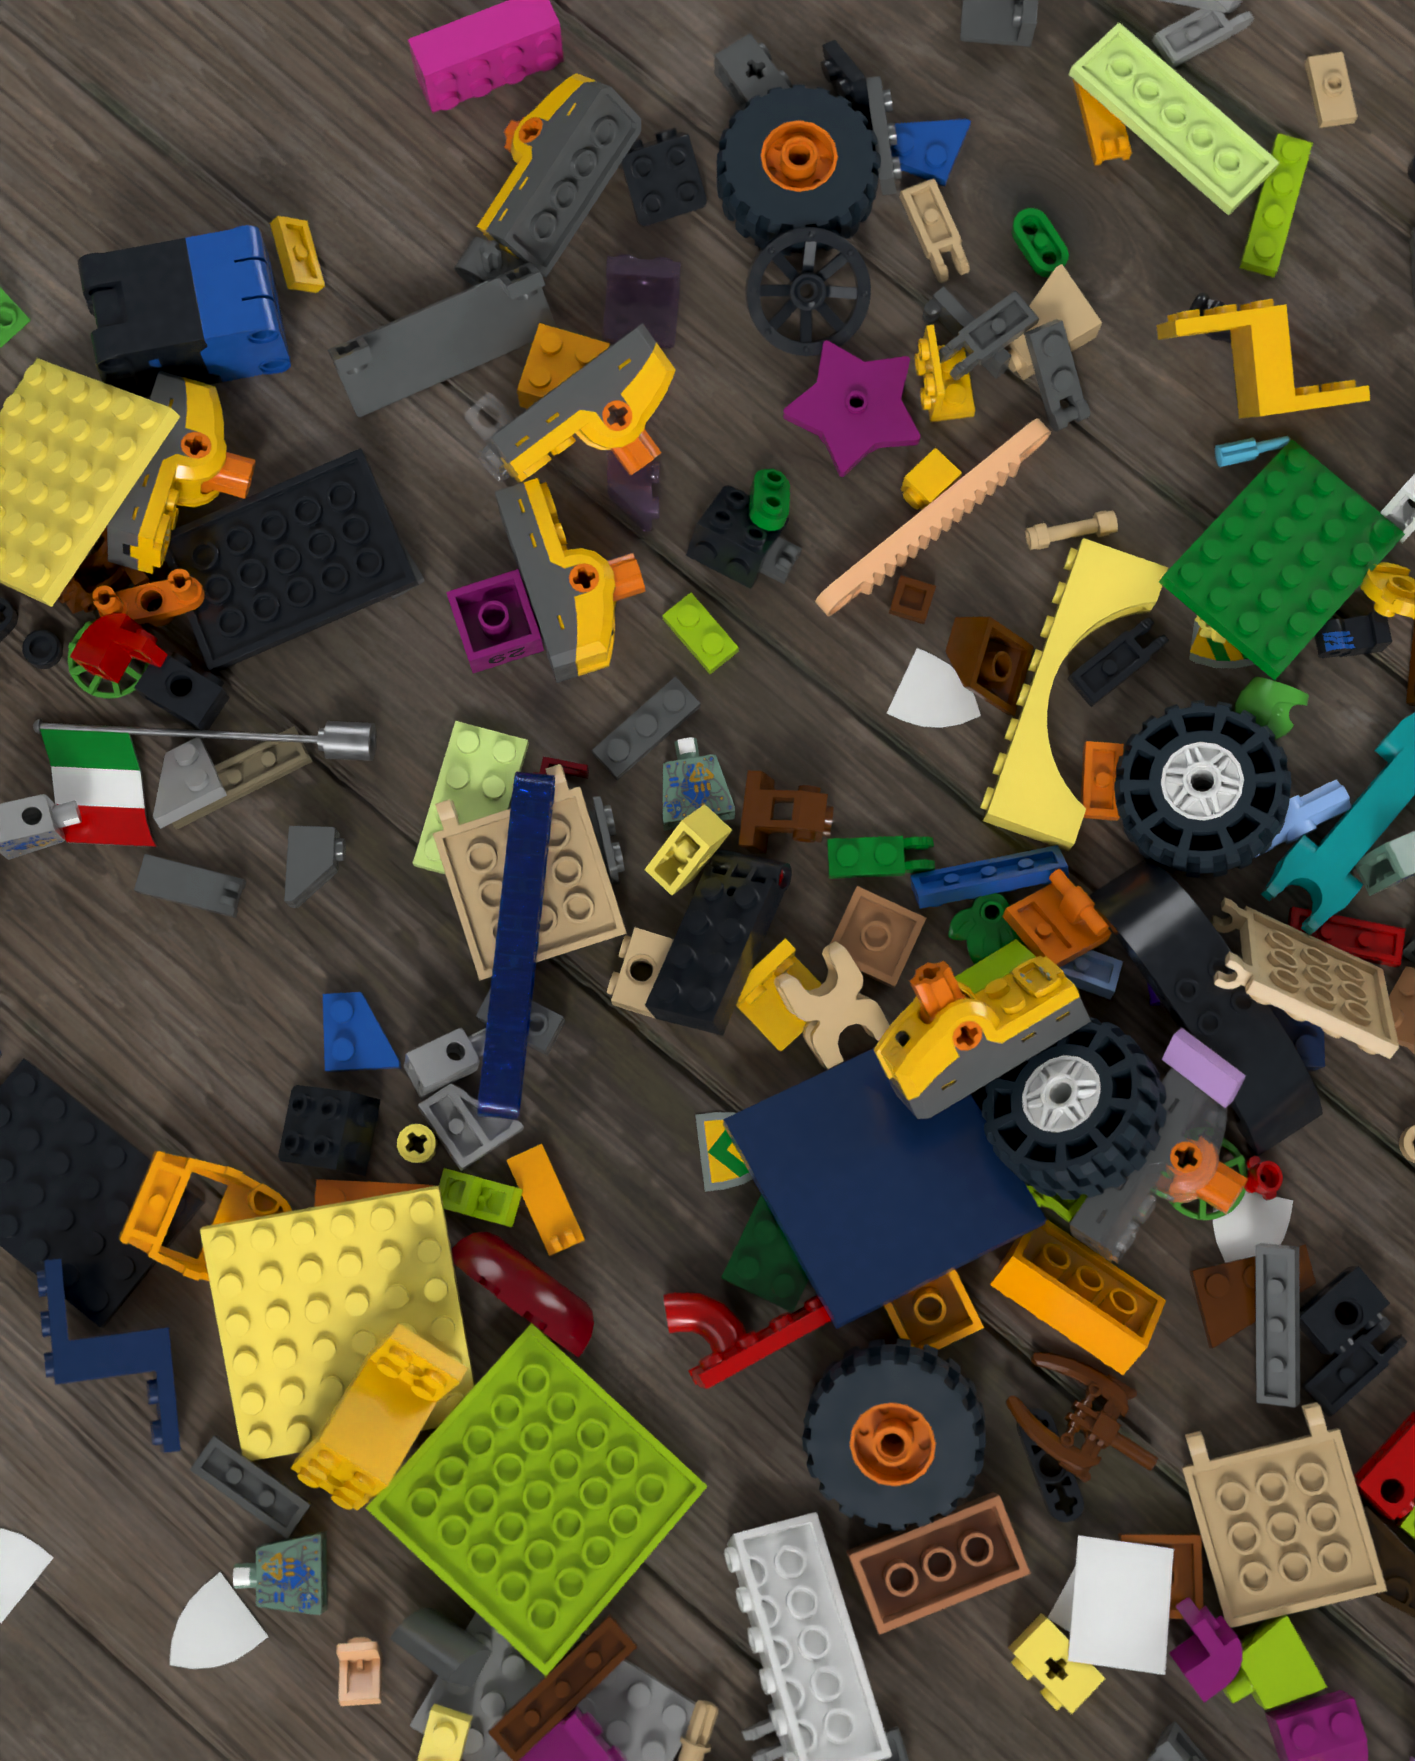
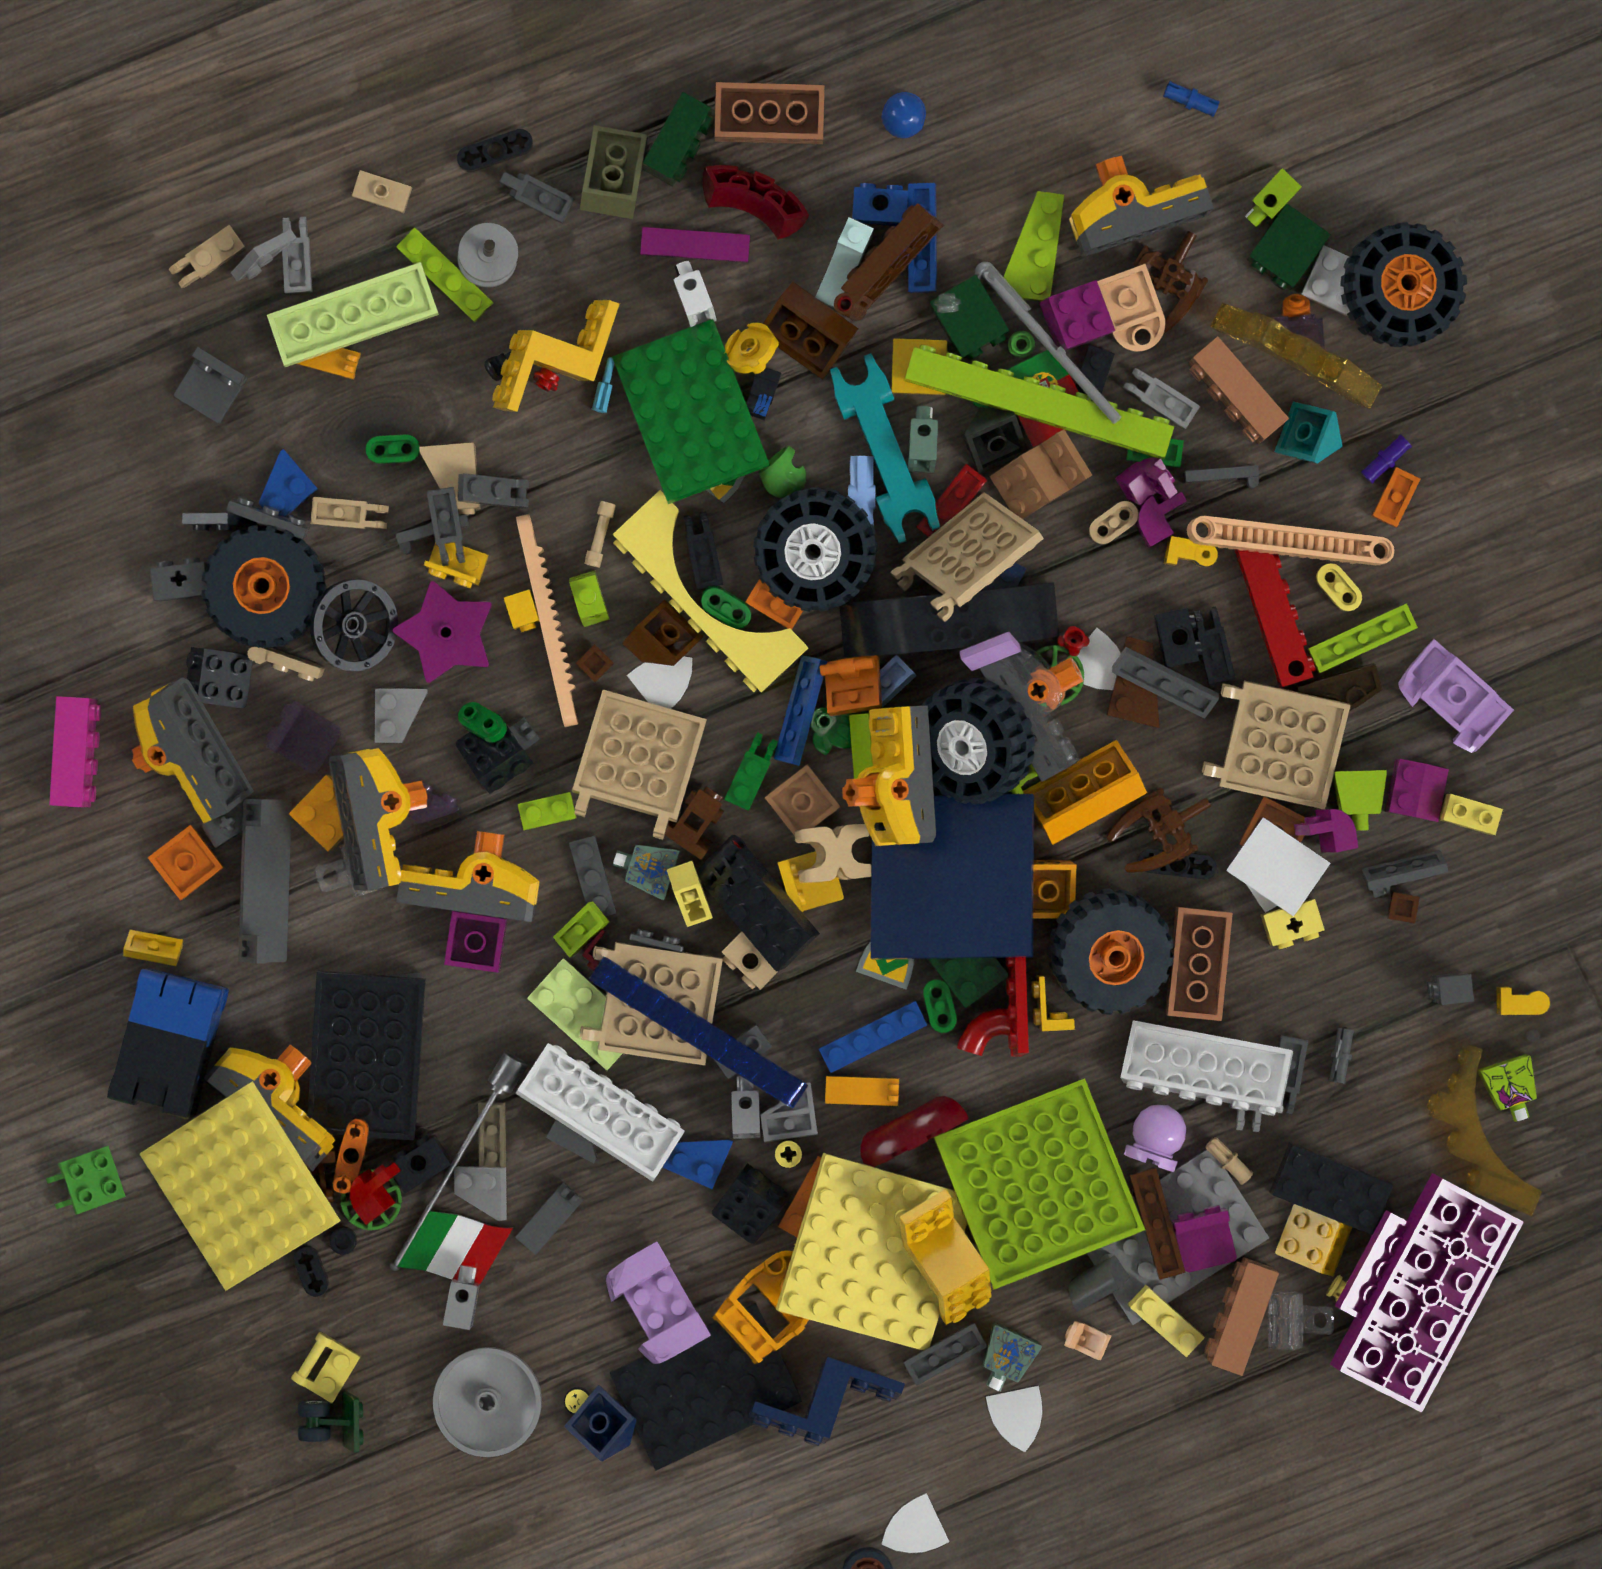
camera: 60 degrees left, 10 degrees up
(141, 1074) = (657, 1304): none -> lavender piece
(355, 877) = (600, 1111): none -> white bracket
(420, 244) = (186, 862): none -> orange plate
(479, 1197) = (840, 1131): lime slope -> none
(575, 742) = (581, 929): none -> lime plate
(622, 1178) = (873, 1036): none -> blue plate
(681, 1627) = (1158, 1135): none -> lavender tile
(706, 1244) = (939, 1005): none -> green plate
(720, 240) = (284, 661): none -> tan hinge
(726, 399) = (395, 713): none -> light grey wing
(766, 1408) = (1057, 1020): none -> yellow bracket
(823, 705) = (638, 758): none -> tan plate
(990, 548) = (589, 598): none -> lime torso
(1067, 721) = (725, 606): none -> green plate
(1221, 376) = (546, 379): none -> red plate
(1330, 235) = (487, 255): none -> light grey wheel

